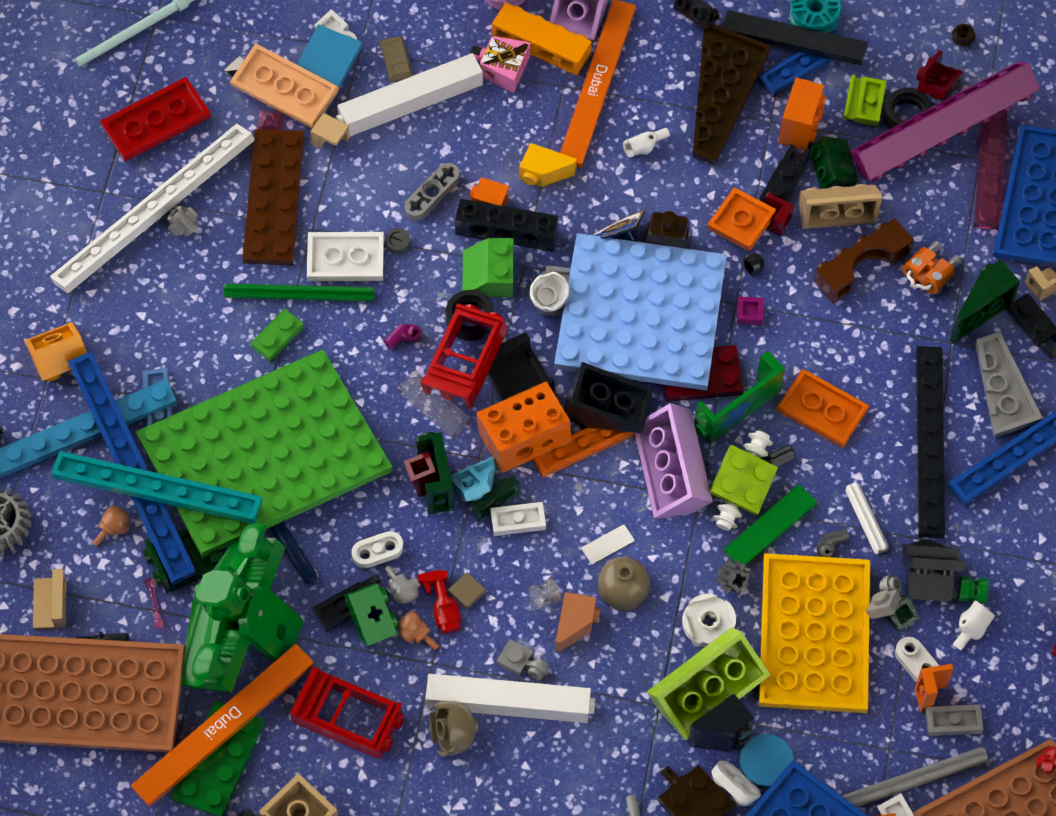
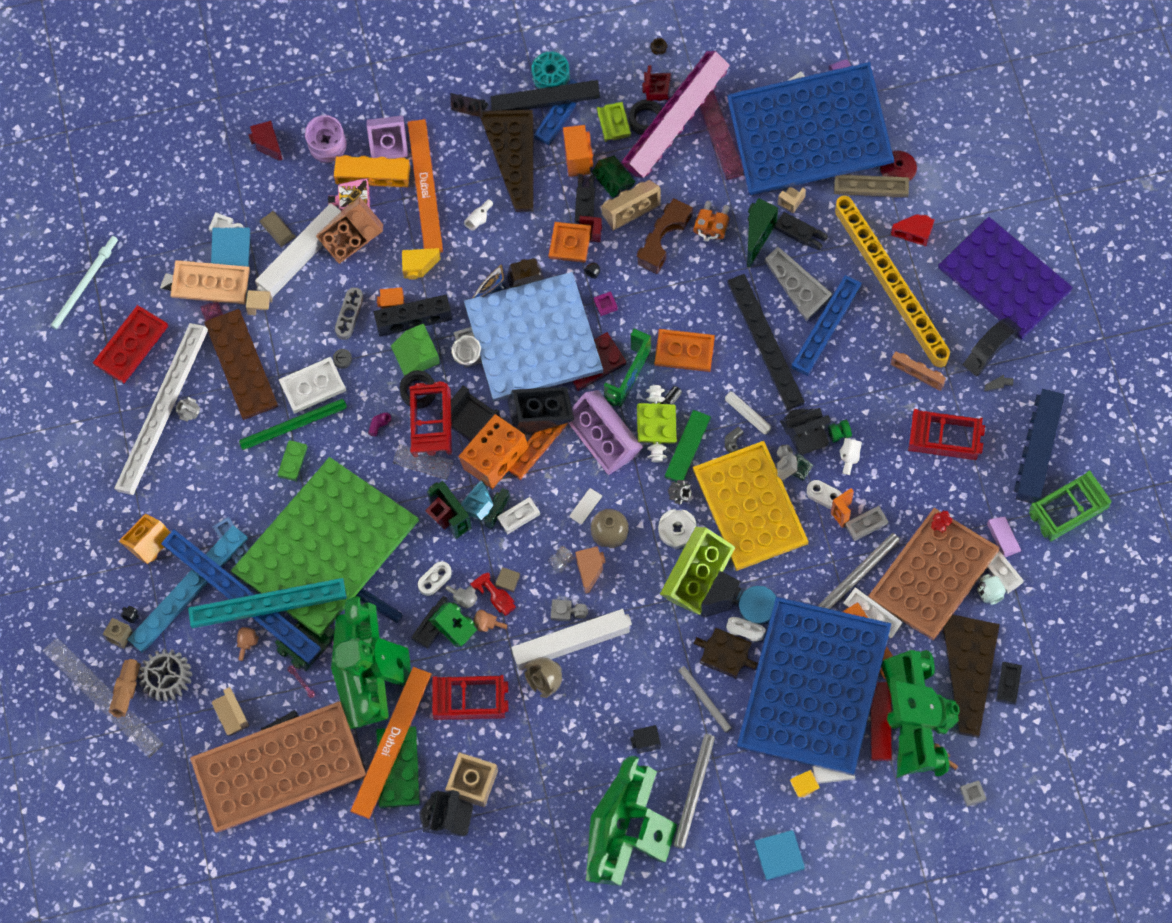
camera: 20 degrees left, 5 degrees up
(480, 94) = (350, 230): none -> nougat slope

